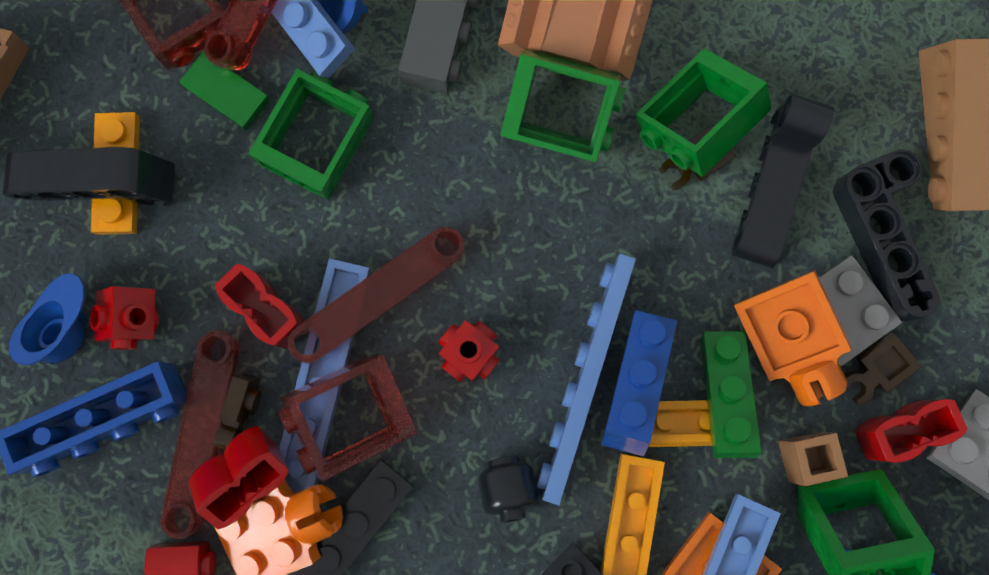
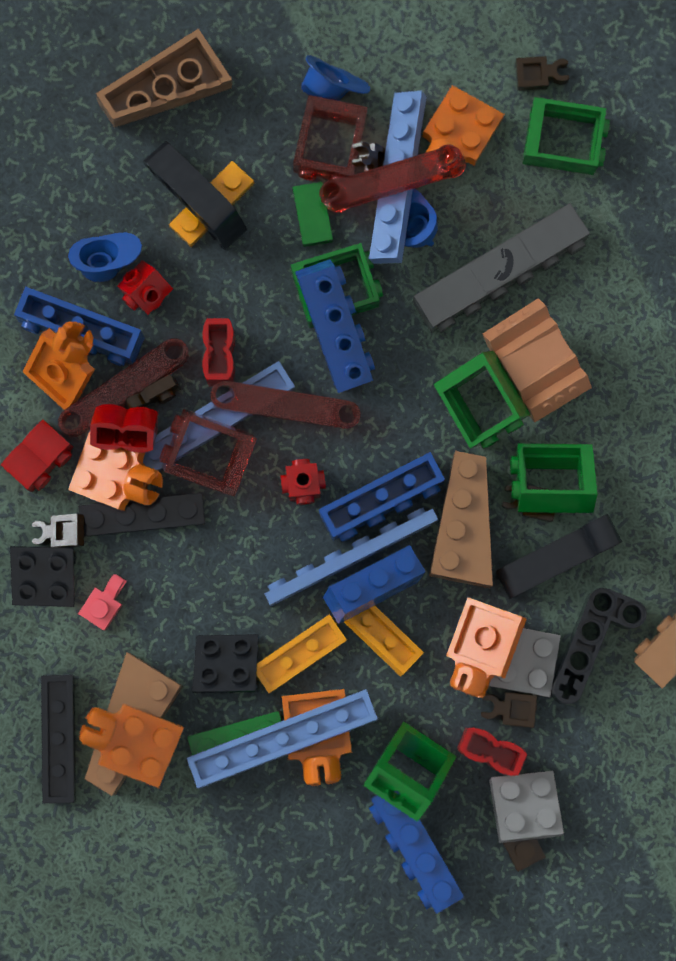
camera: 45 degrees right, 0 degrees up
(106, 473) = (61, 363): none -> orange plate
(348, 168) = (334, 325): none -> blue brick
(508, 488) = (252, 572): black head -> none
(560, 289) = (382, 496): none -> blue brick
(670, 247) = (463, 533): none -> medium nougat wedge
(730, 395) = (416, 639): green plate -> none
(813, 458) = (425, 713): medium nougat brick -> none

